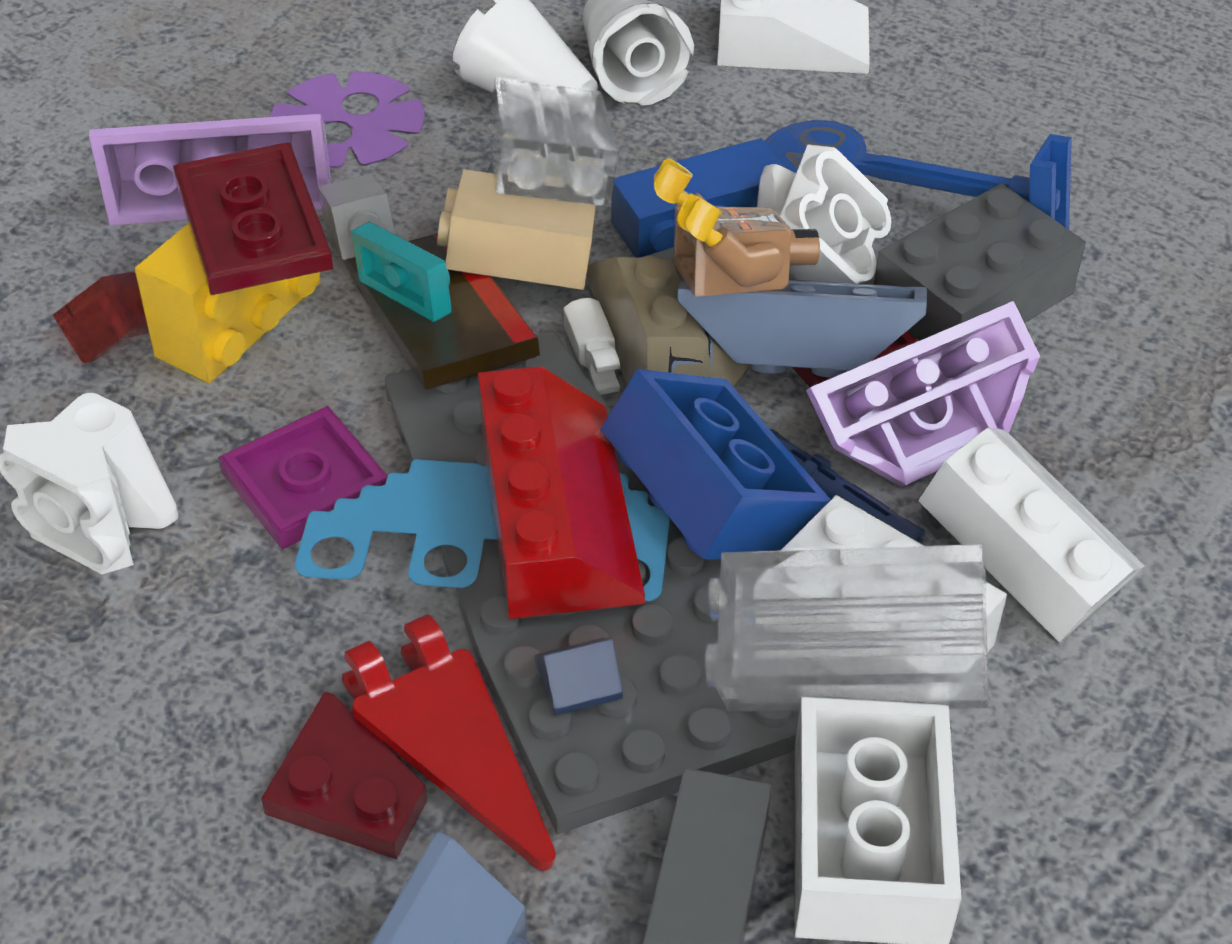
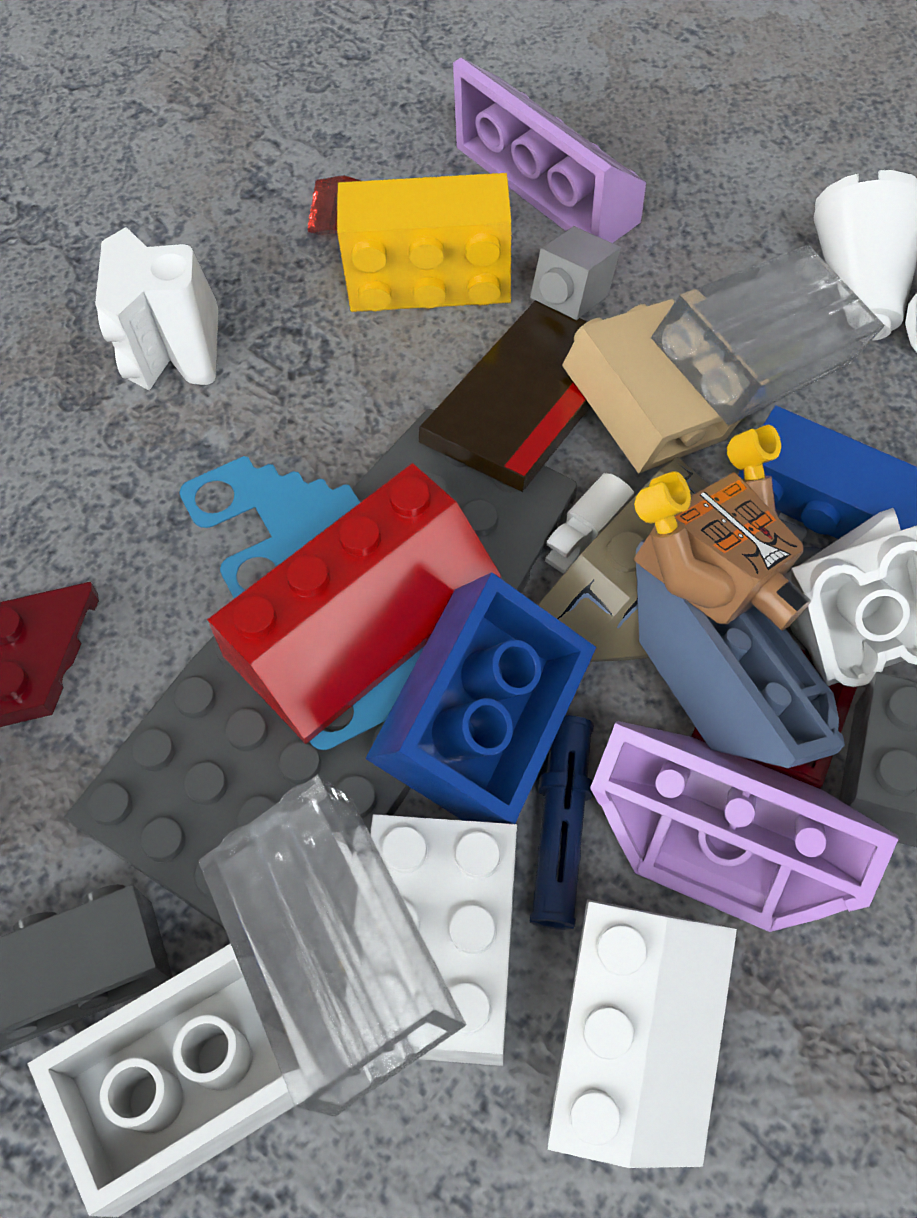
camera: 60 degrees right, 15 degrees up
(252, 218) = (443, 208): dark red tile -> none
(300, 472) = (299, 426): magenta tile -> none
(371, 133) = (699, 226): medium lavender piece -> none
(402, 271) = (515, 354): teal plate -> none
(449, 732) = (103, 690): red flag -> none
(580, 675) = (191, 740): slope -> none

